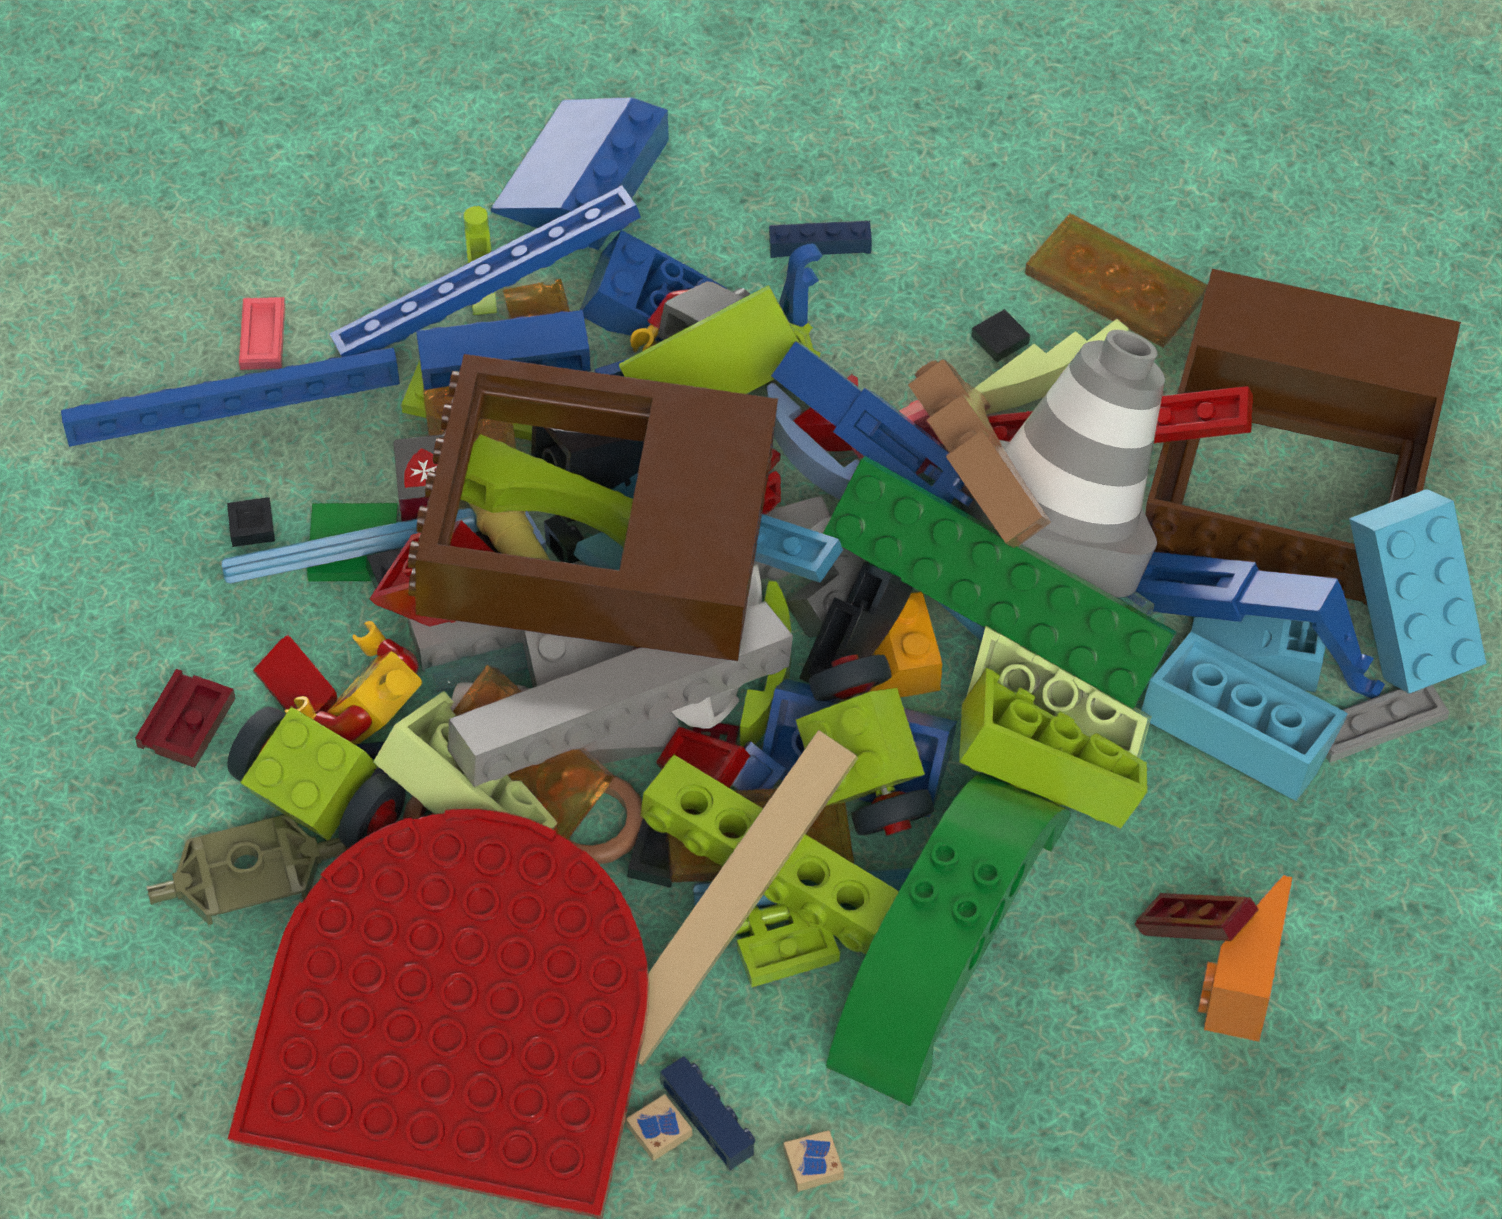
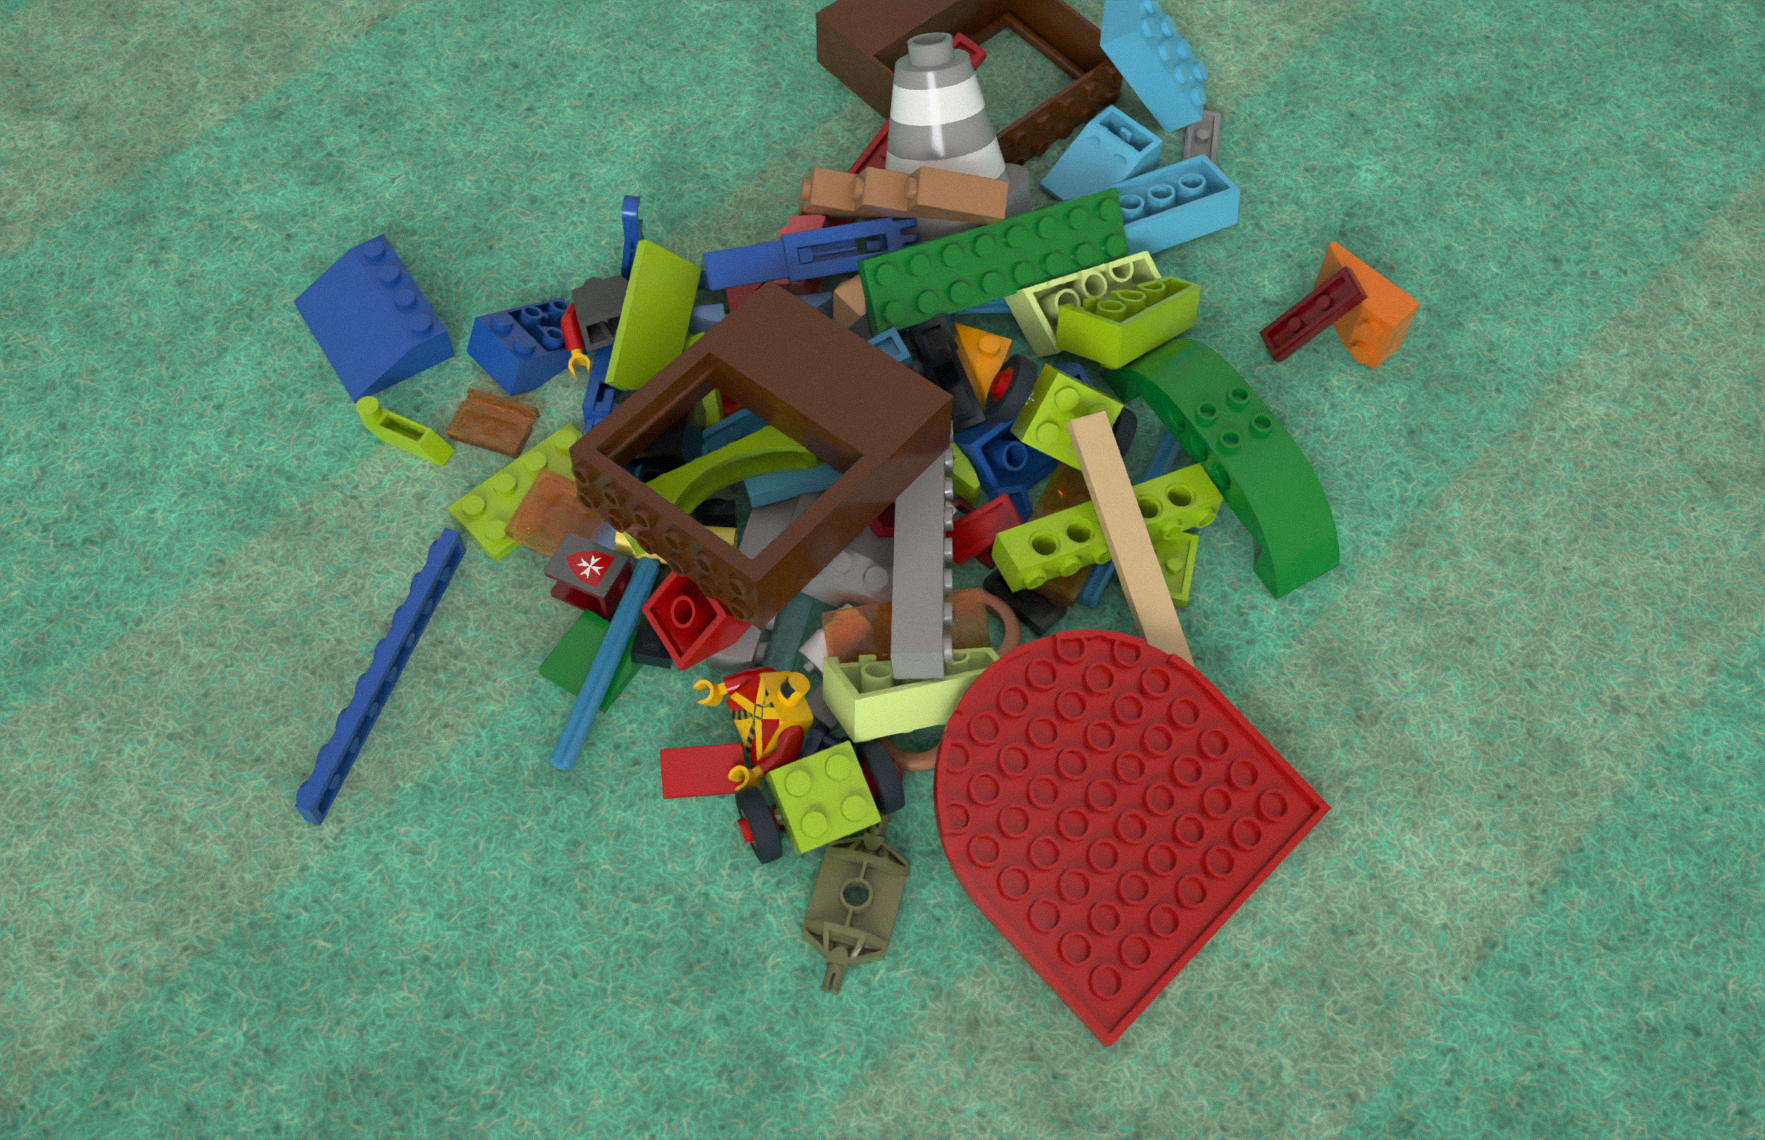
camera: 60 degrees left, 5 degrees up
(185, 718) = (677, 872): dark red plate -> none
(251, 522) = (520, 722): black plate -> none
(262, 333) = (333, 619): coral tile -> none
(487, 274) = (431, 433): blue plate -> none
(541, 340) = (515, 456): blue brick -> none
(659, 1127) = (1274, 727): tan tile -> none
(707, 1113) = (1279, 691): dark blue piece -> none
(813, 1160) = (1352, 647): tan tile -> none
(828, 237) = (570, 219): dark blue piece -> none
(1000, 335) = (741, 168): black tile -> none
(1034, 372) = (797, 157): yellowish green slope -> none
(1116, 279) = (751, 82): clear orange plate -> none
(1237, 588) = (1077, 149): blue hinge -> none

